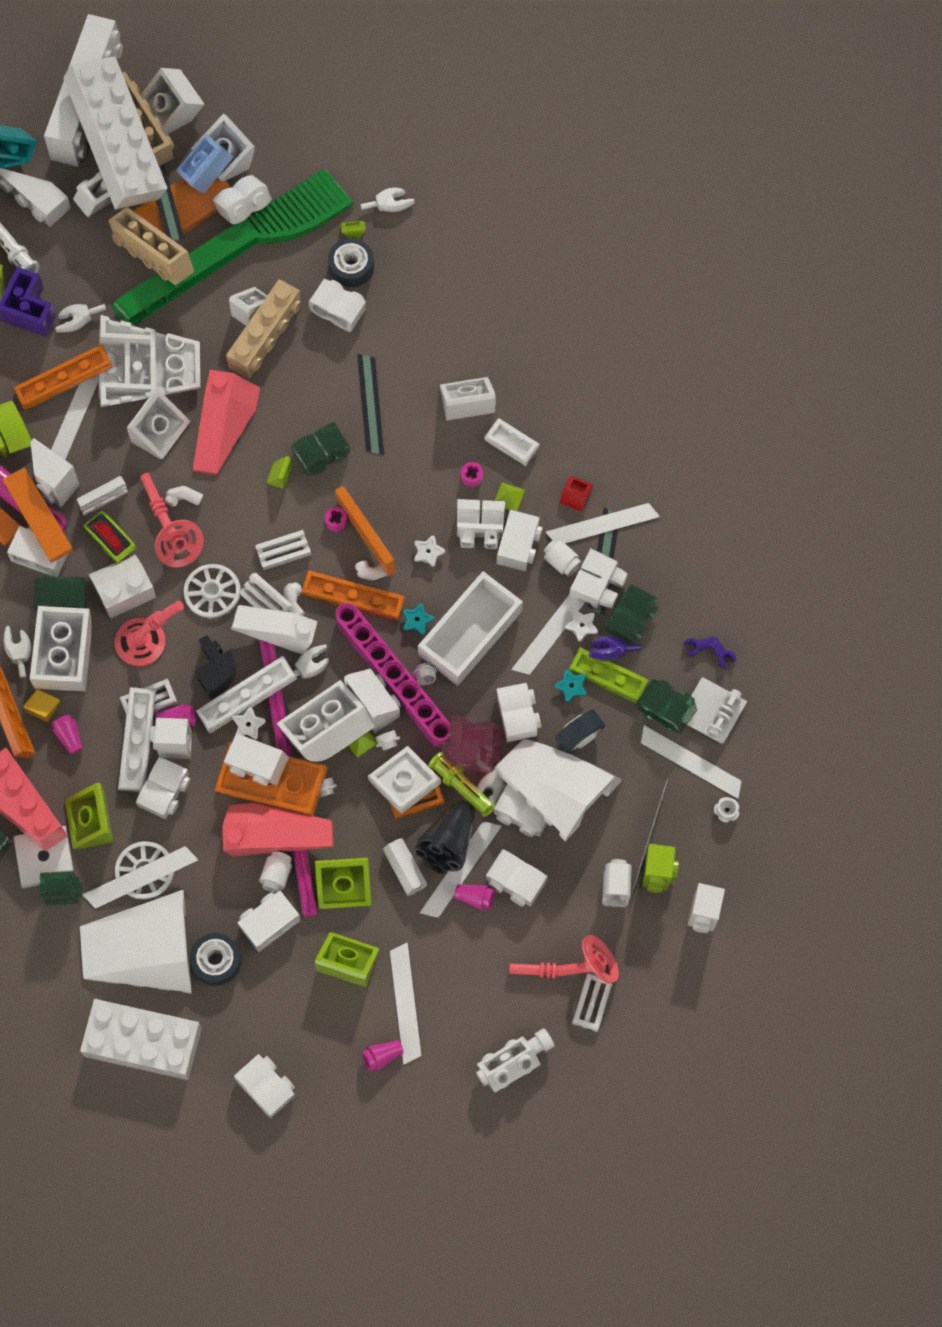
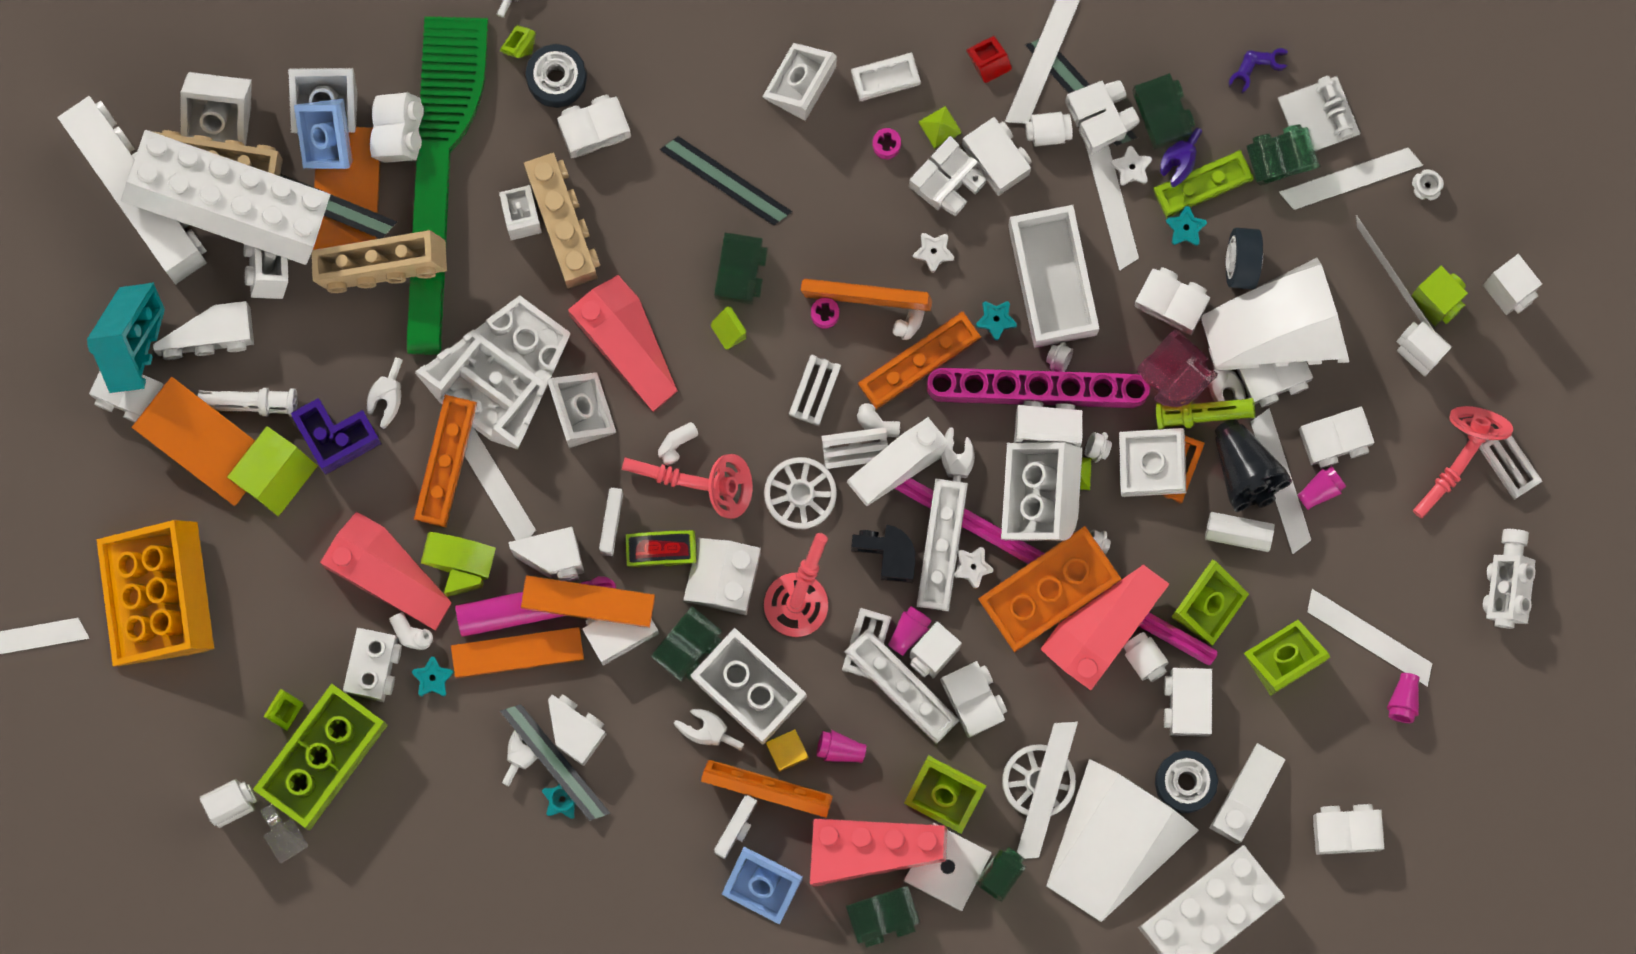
camera: 50 degrees left, 10 degrees up
(237, 1003) = (1247, 794): none -> white slope
(256, 760) = (1025, 588): white brick -> none

